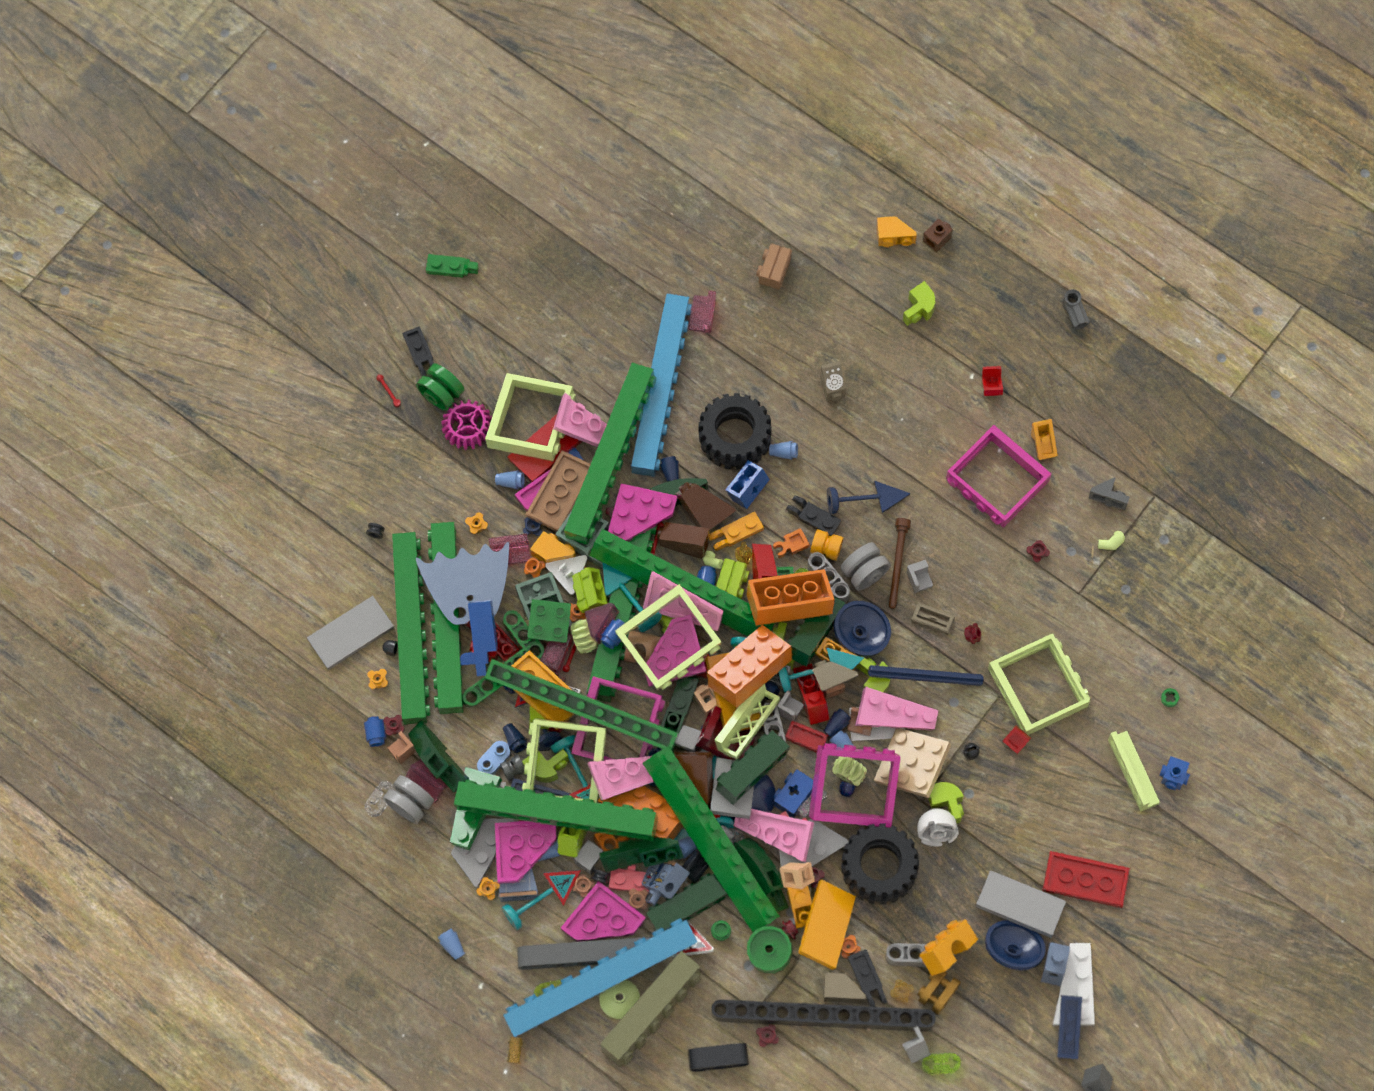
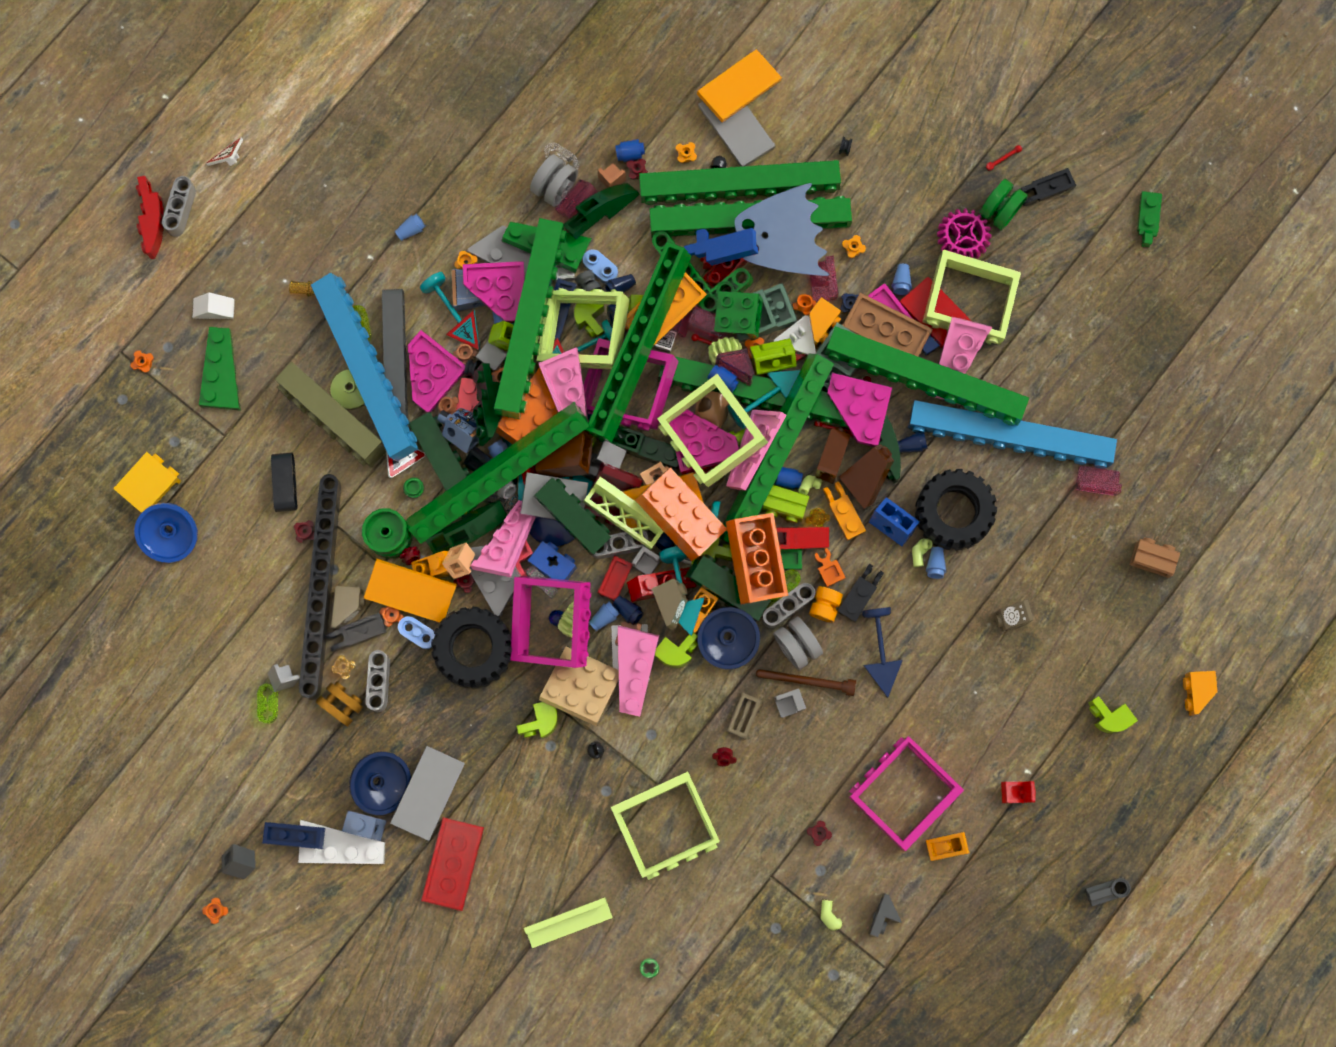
camera: 90 degrees right, 10 degrees up
(310, 628) = (739, 85): none -> light orange tile
(771, 465) = (919, 550): none -> yellowish green arm
(864, 920) = (417, 633): none -> light blue plate
(925, 675) = (675, 702): dark blue axle -> none
(937, 235) = (1198, 740): reddish brown brick -> none
(937, 827) = (511, 708): white cylinder -> none
(955, 939) = (368, 700): light orange arch -> none
(1016, 739) = (604, 798): red plate -> none
(1175, 773) = (569, 966): blue brick -> none

